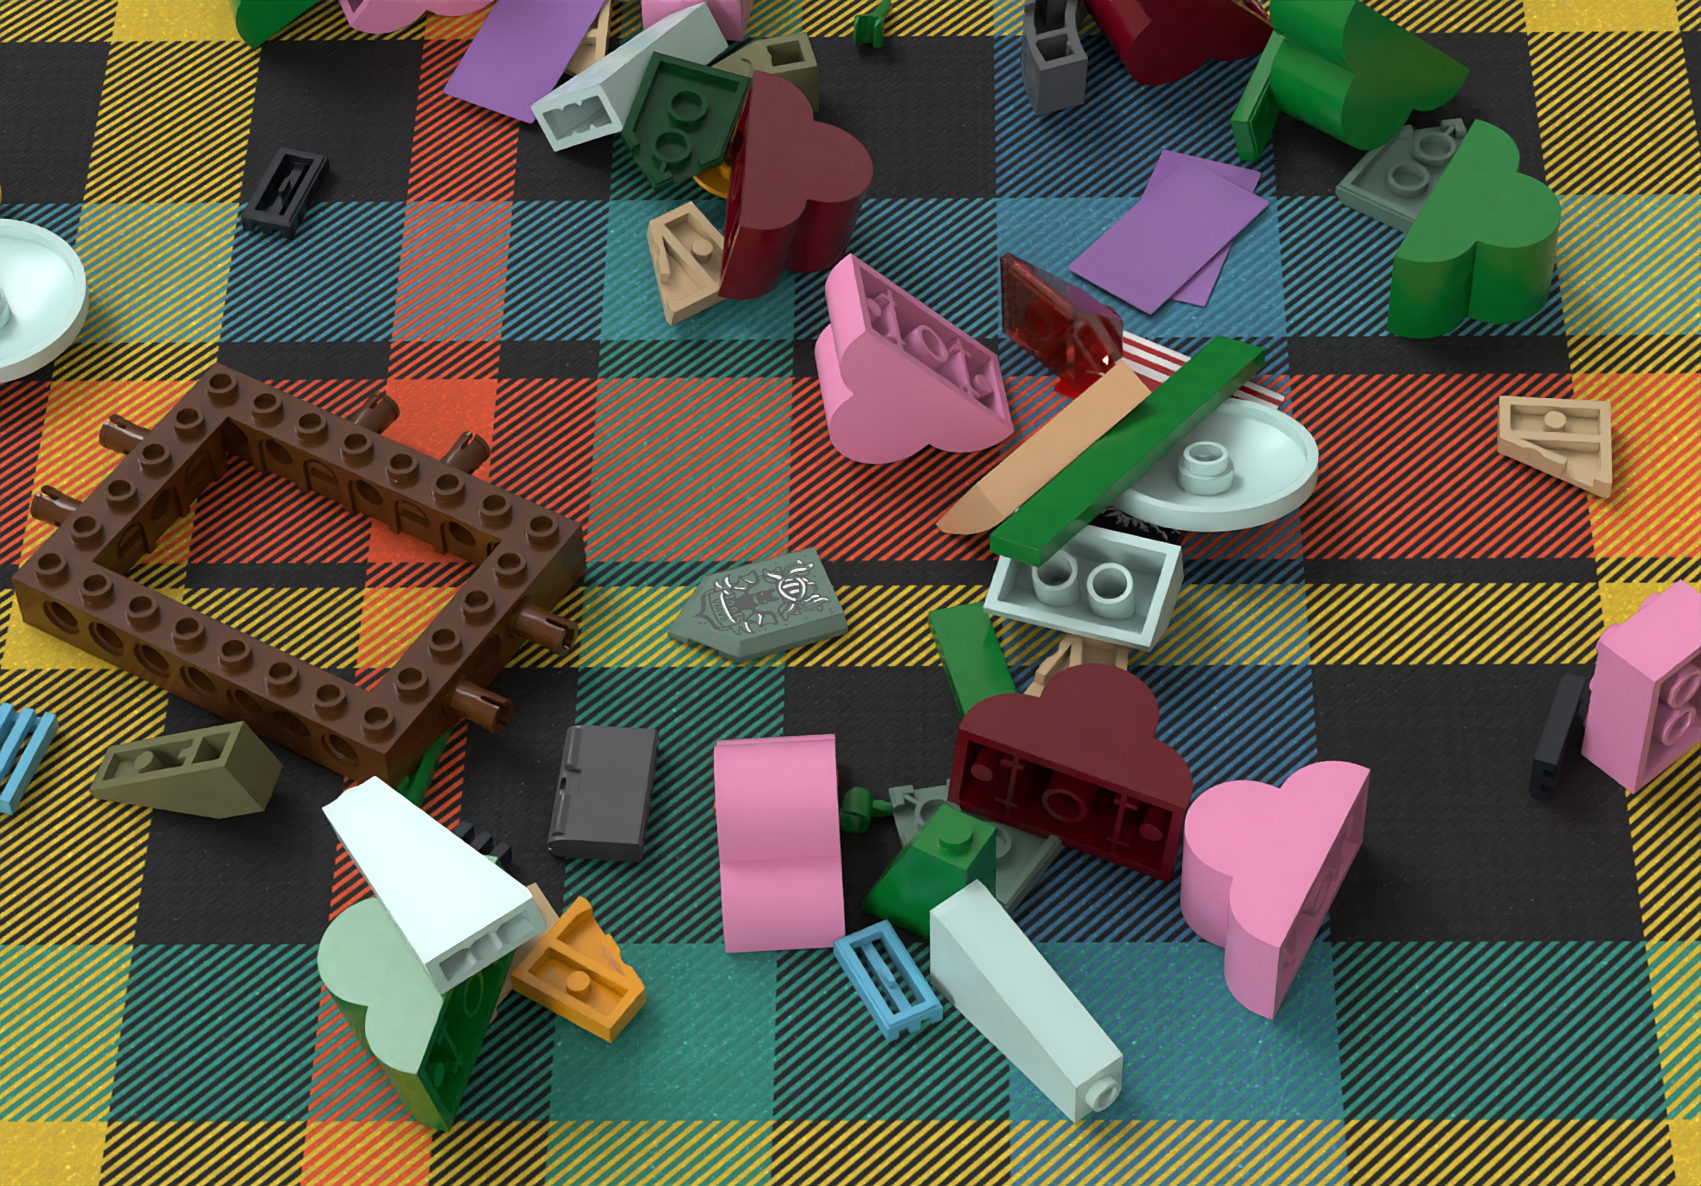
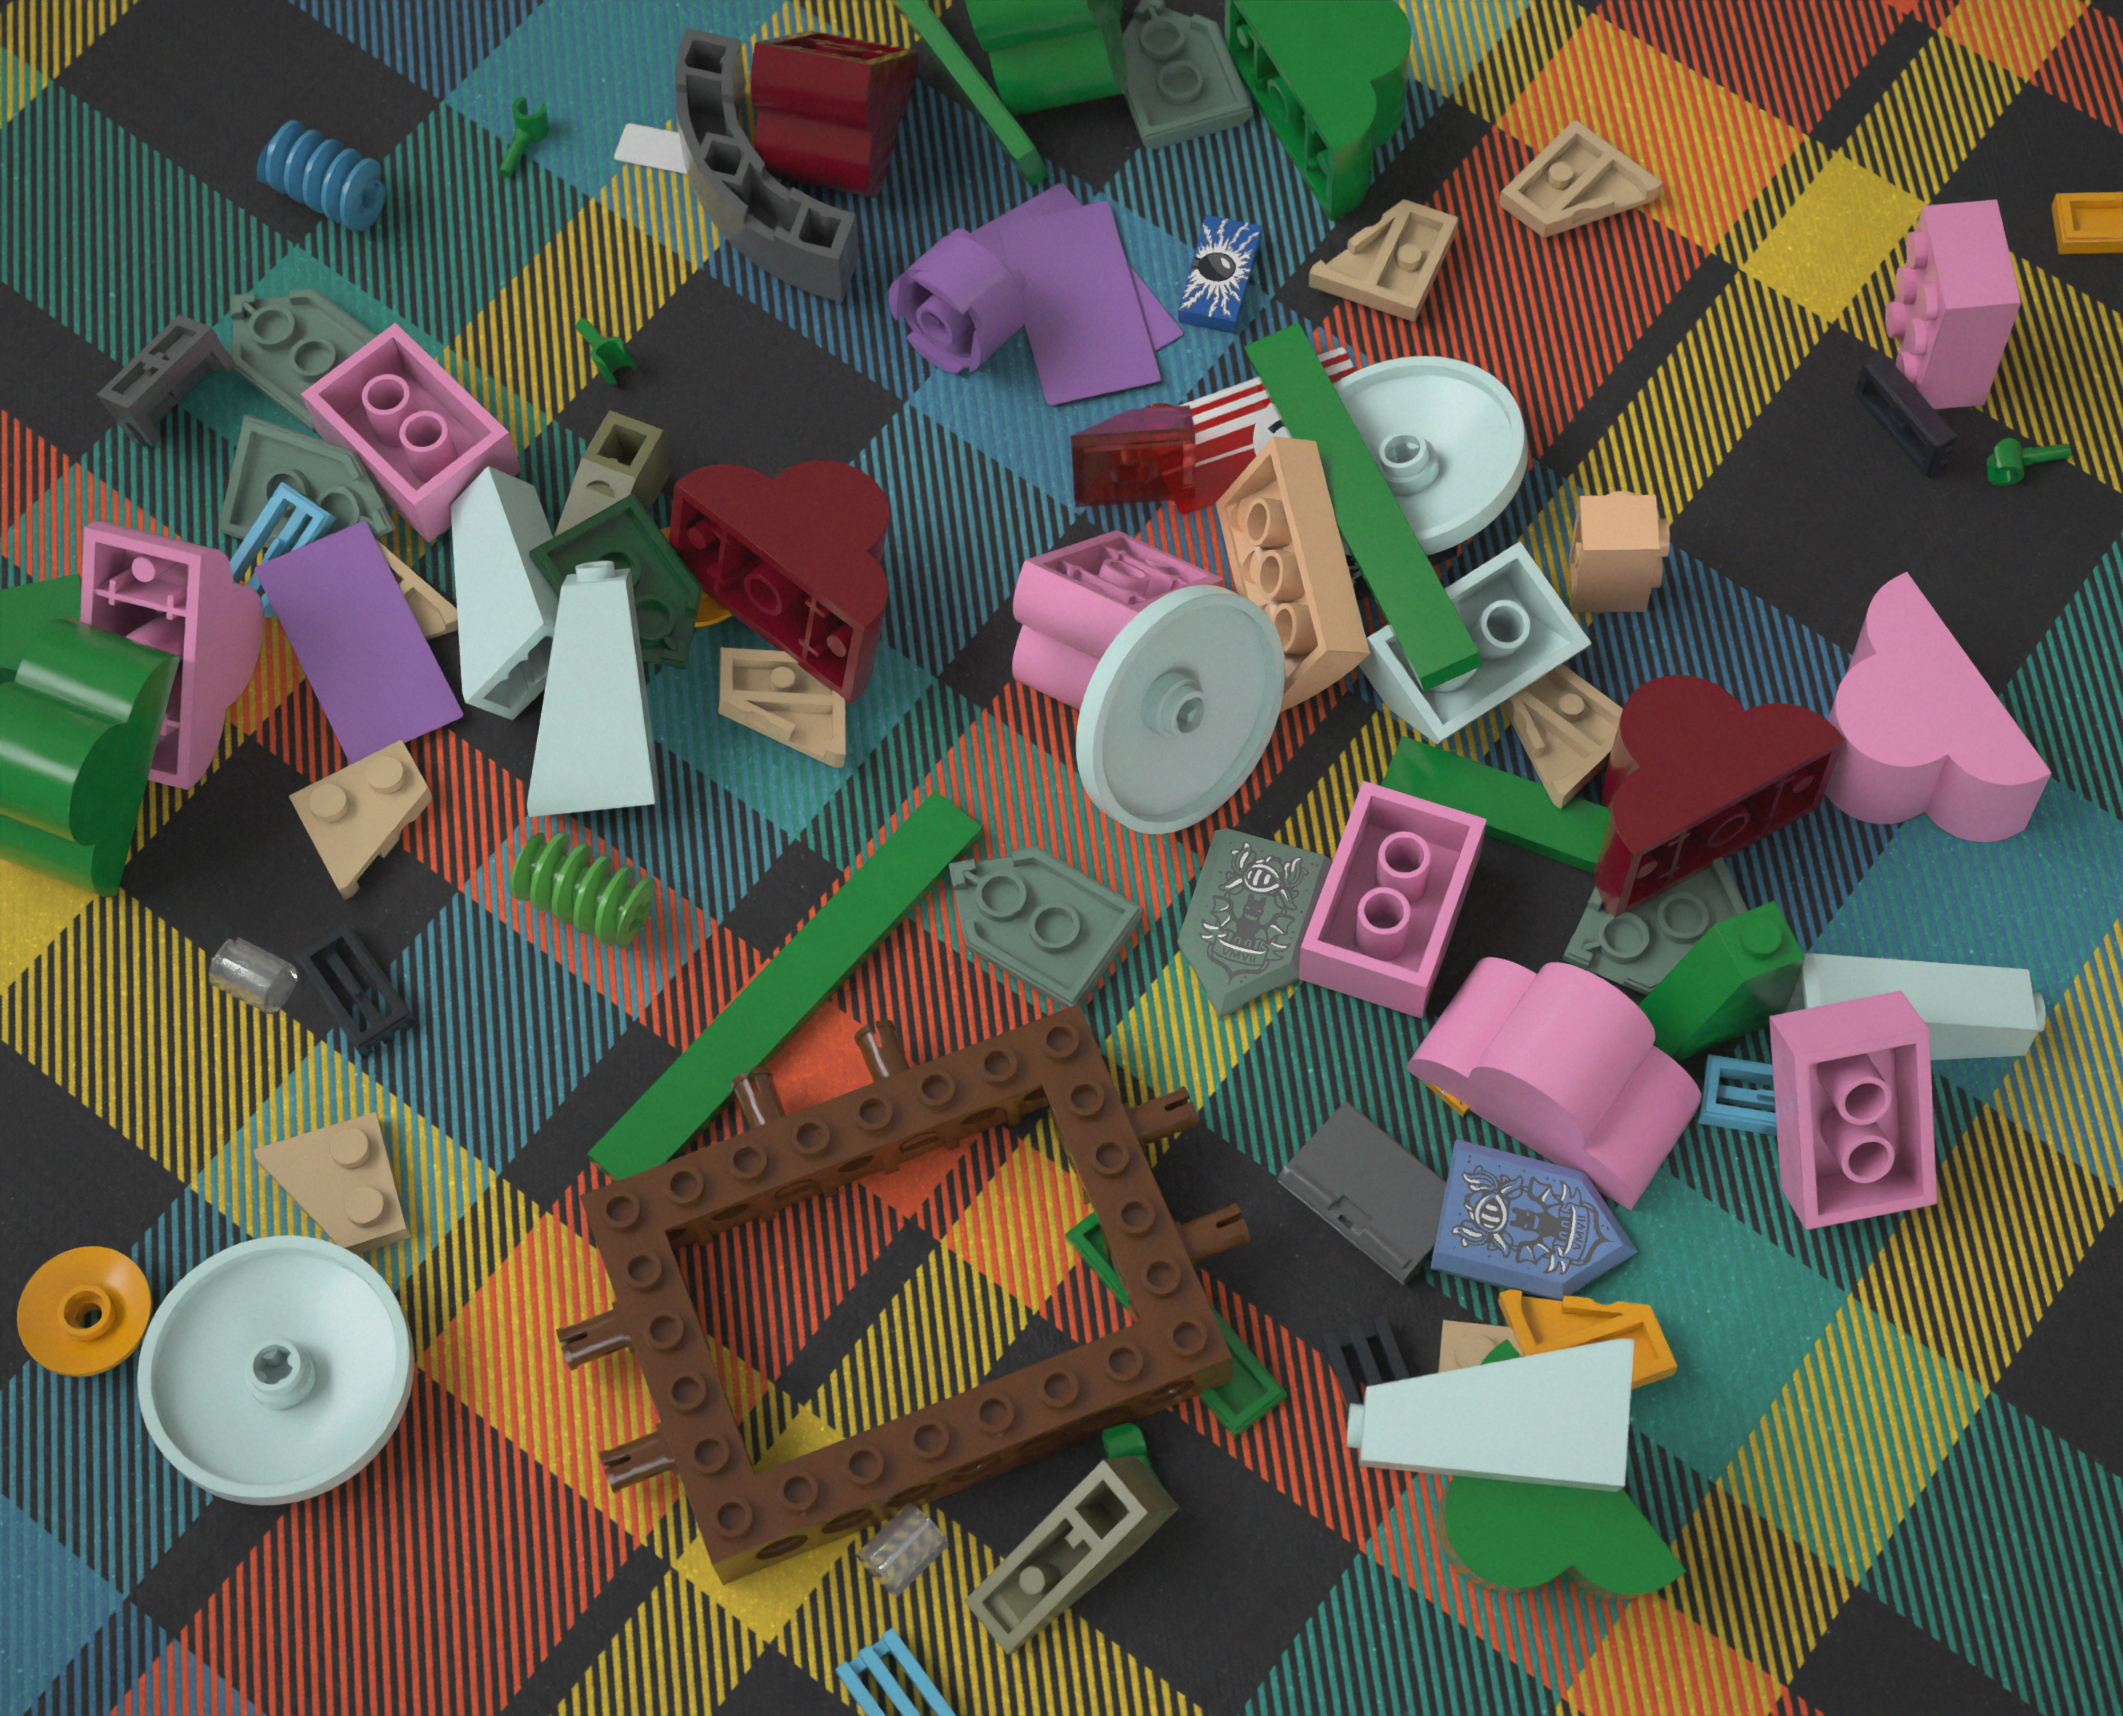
camera: 50 degrees left, 15 degrees up
(115, 686) = (902, 1549): none -> clear piece
(145, 268) = (342, 1182): none -> tan wing
(248, 136) = (253, 975): none -> clear piece
(295, 770) = (1126, 1441): none -> green hand
(415, 119) = (362, 811): none -> tan wing
(451, 245) = (582, 892): none -> bright green piece
(499, 398) = (788, 990): none -> green tile
(579, 150) = (595, 707): none -> light aqua slope
(648, 882) = (1524, 1224): none -> medium blue tile
(651, 498) = (1042, 921): none -> sand green tile
(834, 657) = (1391, 899): none -> bright pink brick
(851, 435) = (1180, 709): none -> light aqua dish
(887, 992) = (1854, 1109): none -> bright pink brick
(1084, 160) = (959, 302): none -> medium lavender brick
(1240, 618) = (1616, 552): none -> light nougat brick
(1270, 293) = (1220, 274): none -> tile
(1380, 375) = (1391, 261): none -> tan wing
(1592, 825) = (2008, 461): none -> green hand

